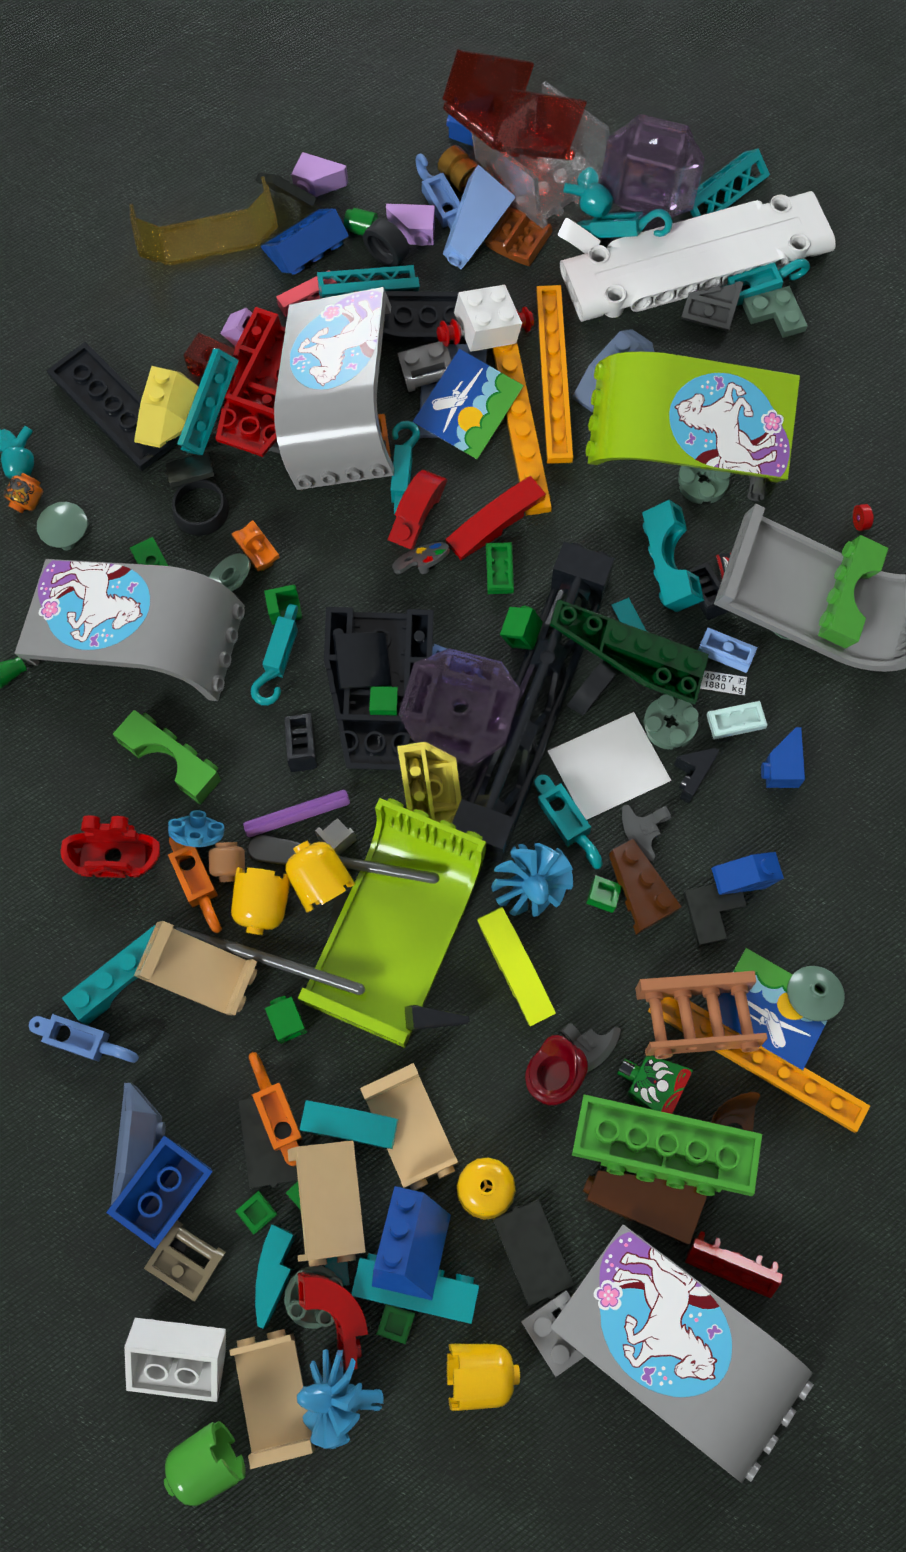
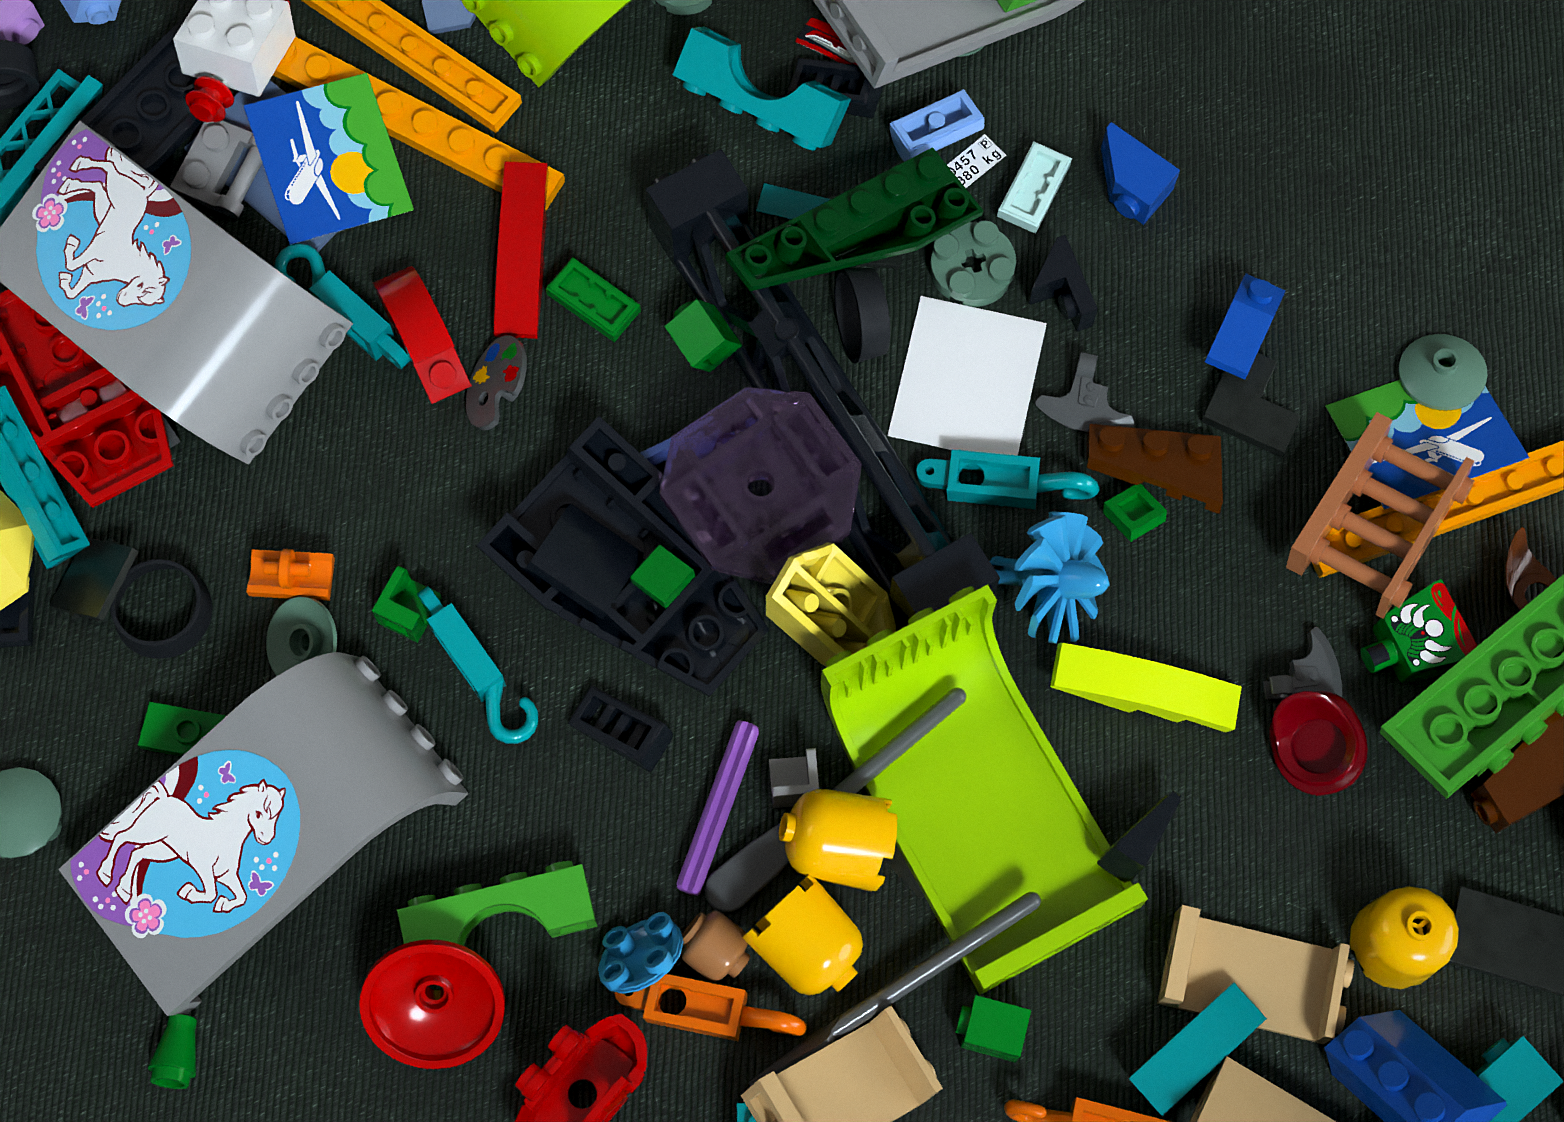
camera: 55 degrees left, 0 degrees up
(102, 757) = (426, 1024): none -> red dish

